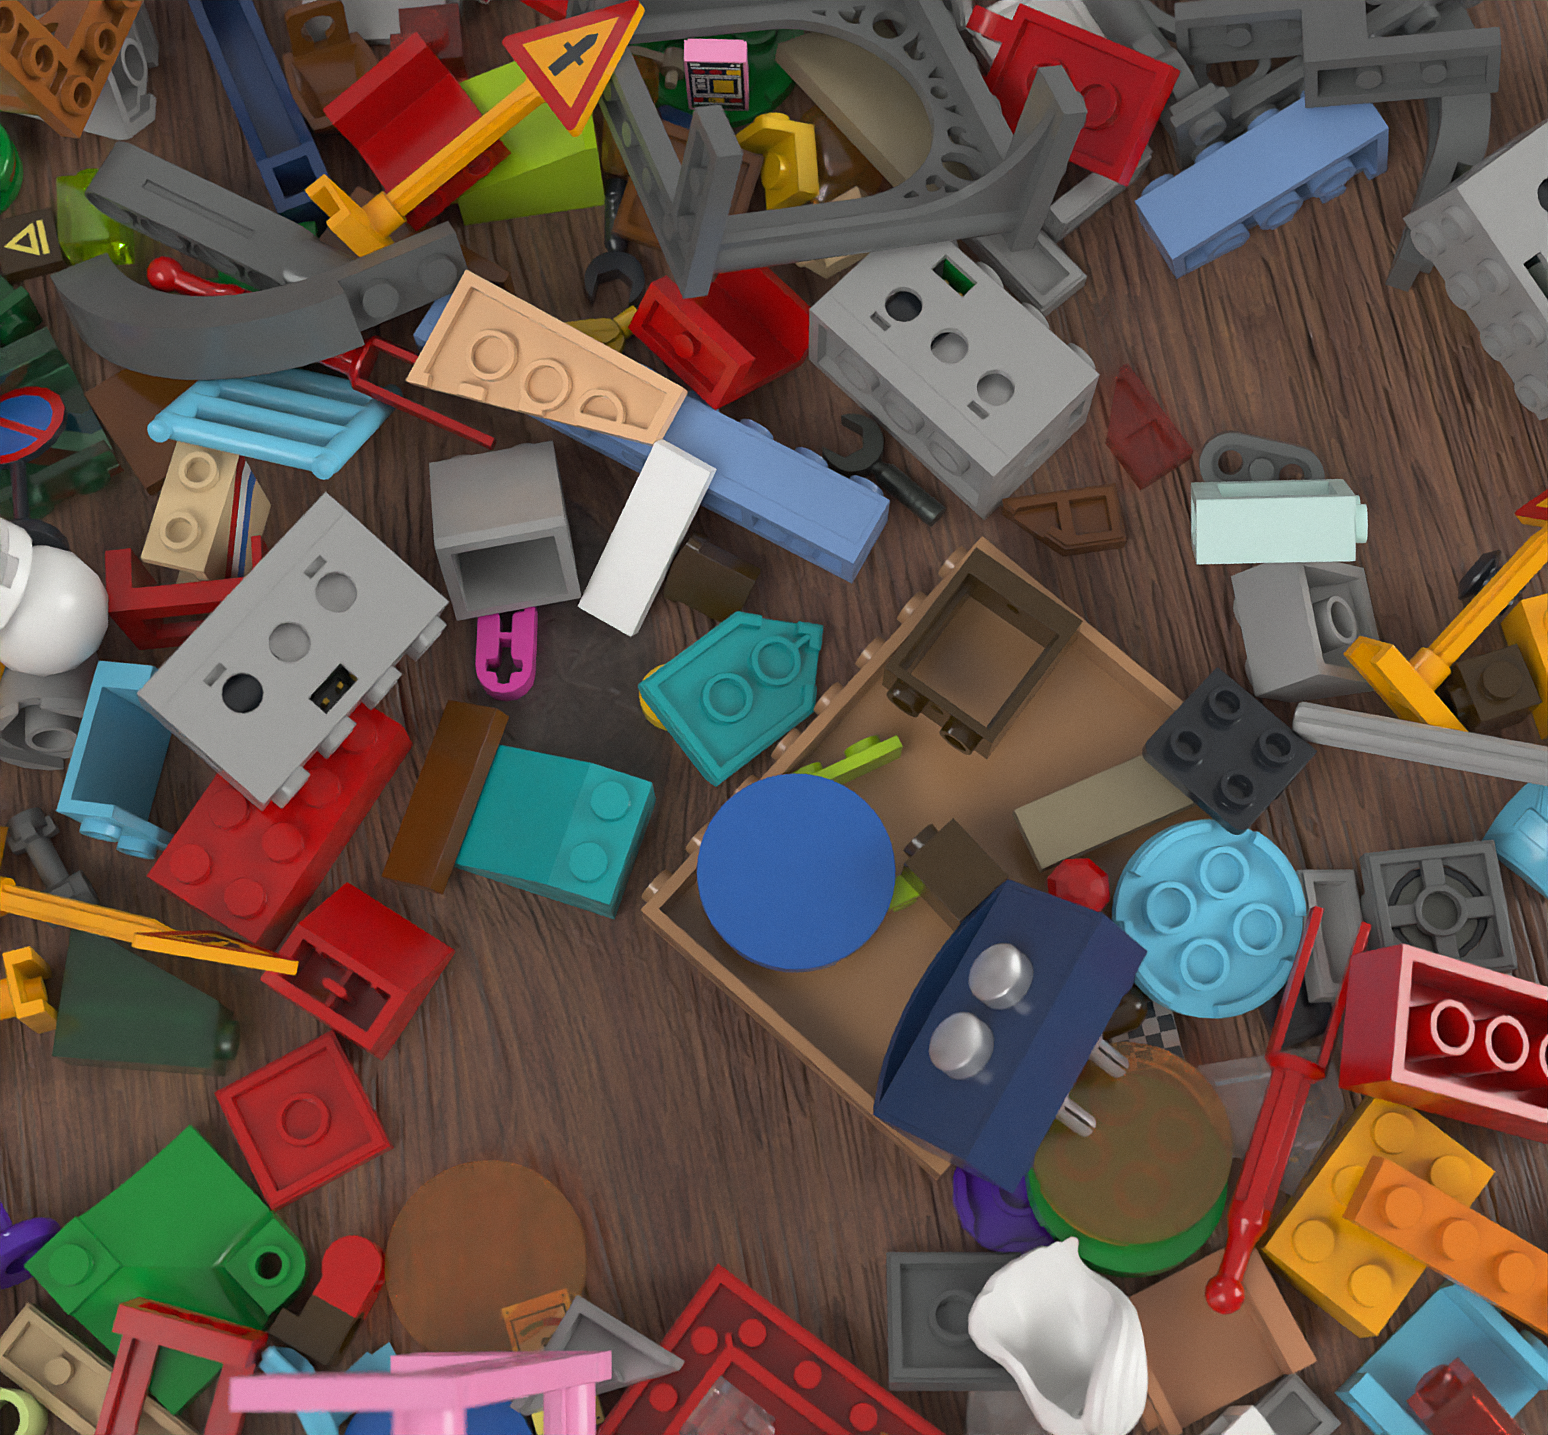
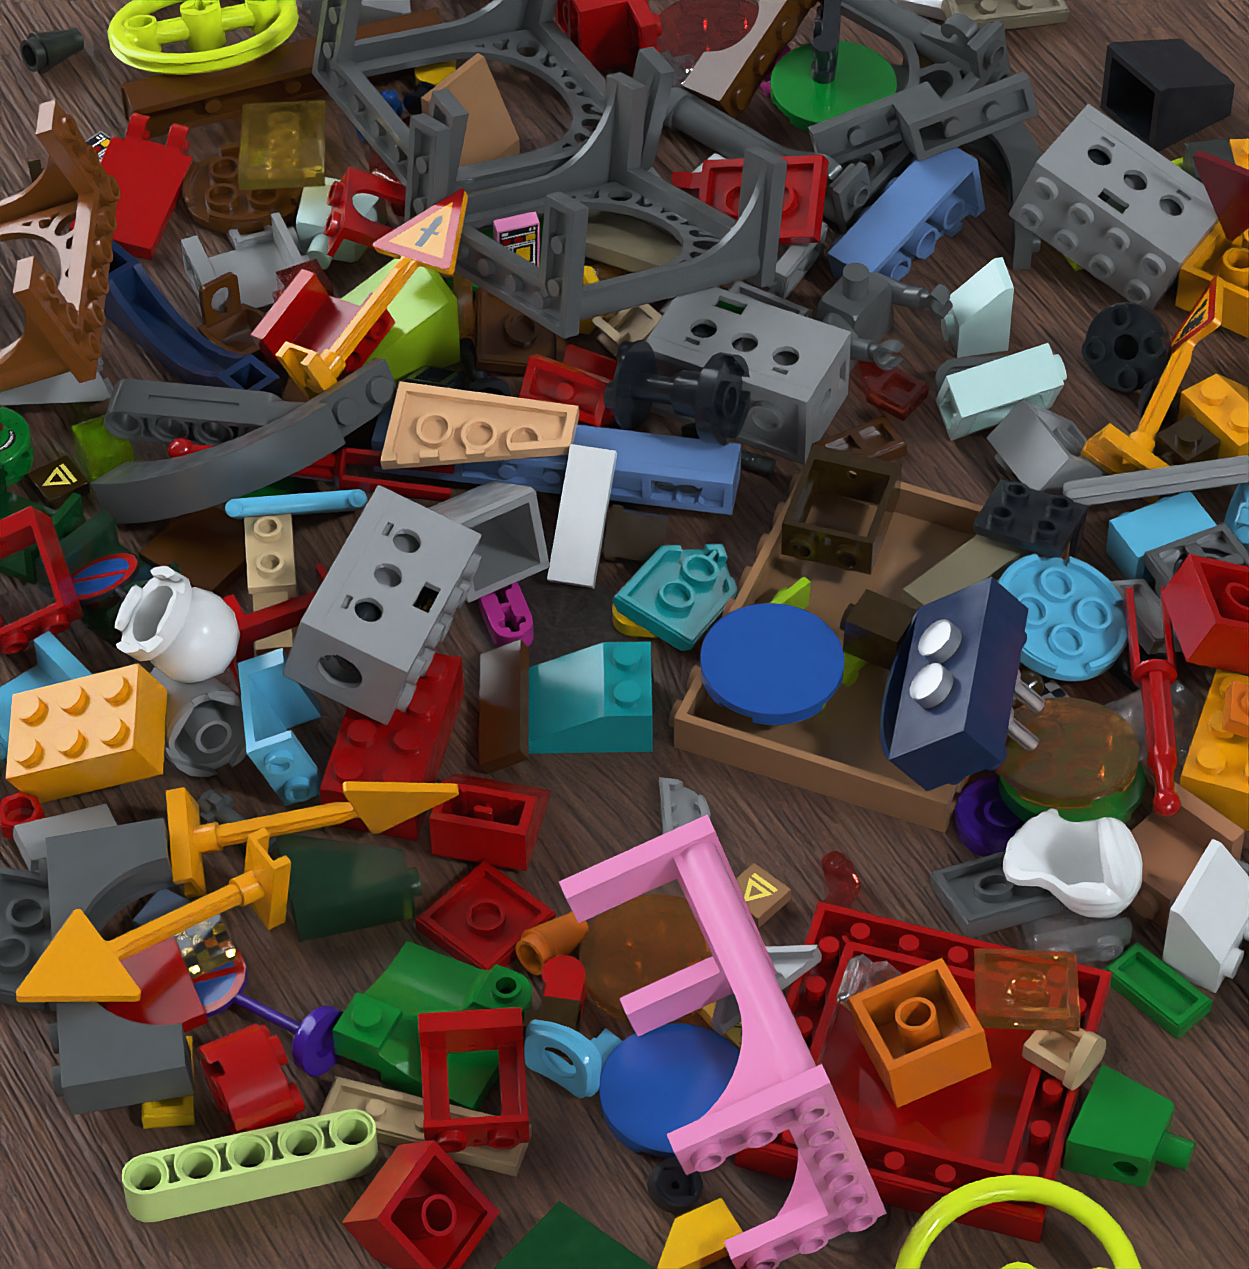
camera: 20 degrees left, 25 degrees down
(367, 1193) = (549, 940): none -> orange cone
(541, 250) = (438, 377): none -> black tile
(608, 1049) = (679, 804): none -> light grey tile
(653, 1204) = (762, 893): none -> medium nougat tile
(769, 1231) = (840, 879): none -> clear red arm
(866, 434) = (708, 396): none -> black piece
(1140, 313) = (864, 306): none -> dark grey torso
(1303, 364) = (981, 312): none -> light aqua slope
(1400, 810) = (1152, 527): none -> medium azure brick
(1480, 489) = (1127, 346): none -> black plate

